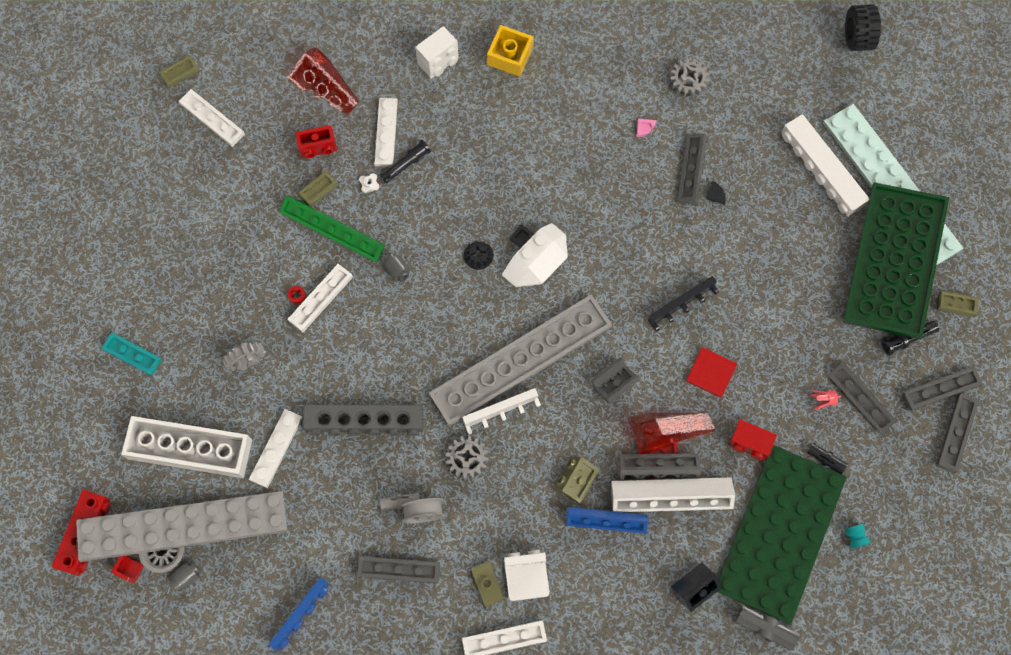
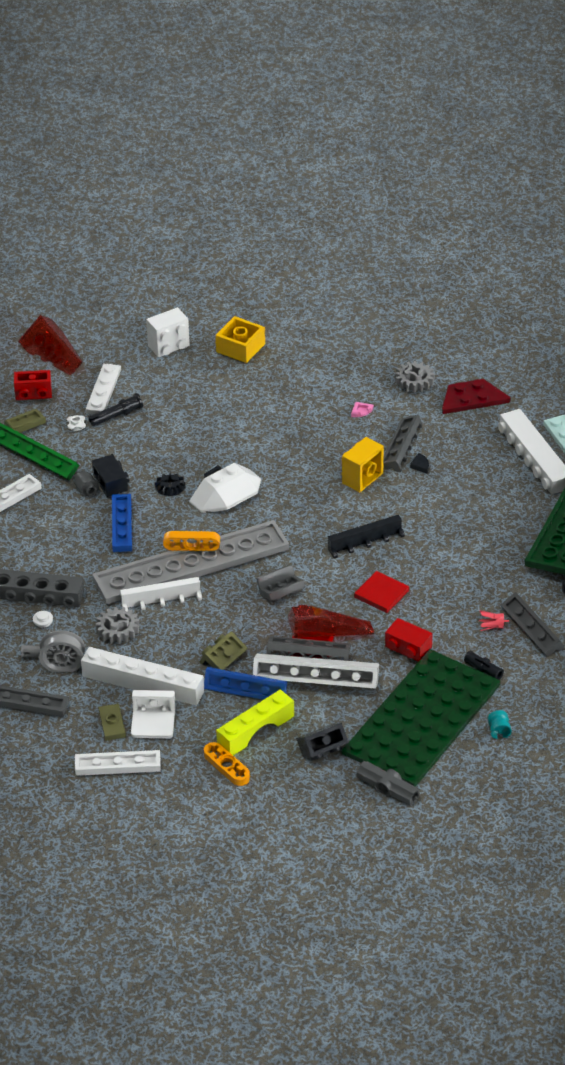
camera: 10 degrees right, 30 degrees down
(391, 456) = (42, 619): none -> white plate
(418, 256) = (110, 475): none -> black brick
(442, 316) = (121, 523): none -> blue plate
(506, 524) = (141, 675): none -> white brick
(519, 340) = (177, 536): none -> light orange beam
(624, 629) = (225, 756): none -> light orange beam
(627, 571) = (237, 733): none -> neon yellow arch
(664, 211) = (362, 464): none -> yellow brick
(748, 94) = (472, 395): none -> dark red wing

